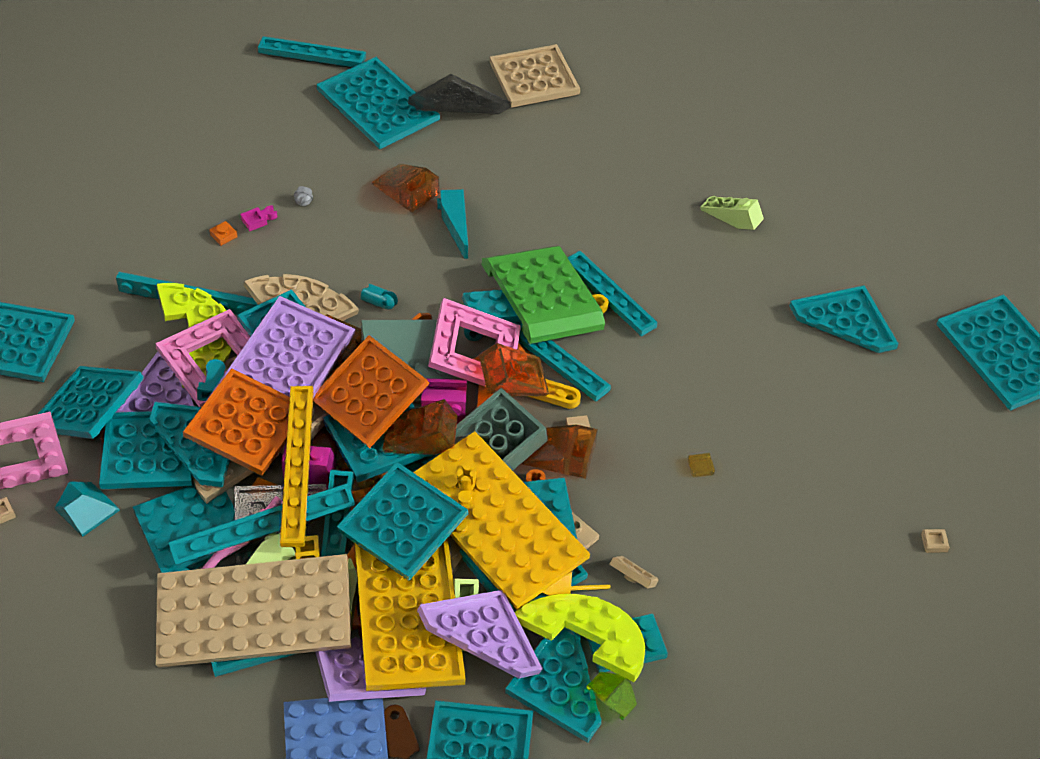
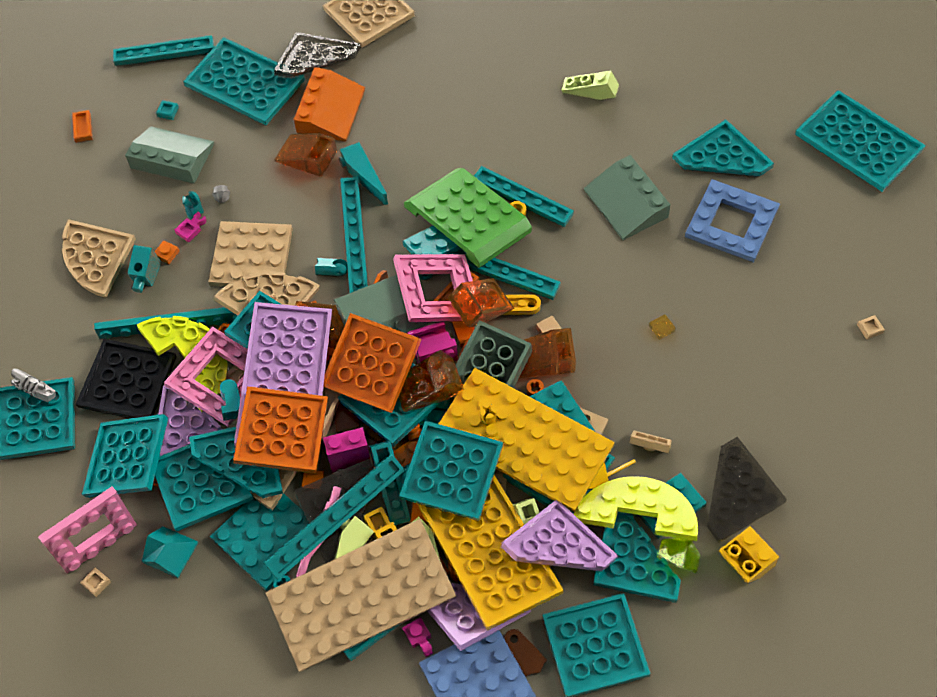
camera: 15 degrees left, 10 degrees up
(30, 308) = (32, 385): none -> light grey hinge
(122, 334) = (125, 380): none -> black plate
(152, 213) = (95, 255): none -> tan plate
(192, 237) = (143, 267): none -> teal torso
(199, 96) = (82, 126): none -> orange tile
(269, 195) = (192, 204): none -> teal piece
(270, 146) = (169, 154): none -> sand green slope
(289, 106) = (167, 110): none -> teal tile
(295, 676) = (418, 635): none -> dark pink plate
(297, 467) = (344, 455): yellow tile -> none
(307, 254) = (249, 250): none -> tan plate
(419, 270) = (354, 234): none -> teal plate
(451, 148) = (328, 105): none -> orange slope
(688, 721) = (749, 555): none -> yellow slope
(709, 656) = (740, 491): none -> clear smoke plate
(722, 329) = (628, 198): none -> sand green slope
(865, 386) = (747, 247): none -> medium blue plate

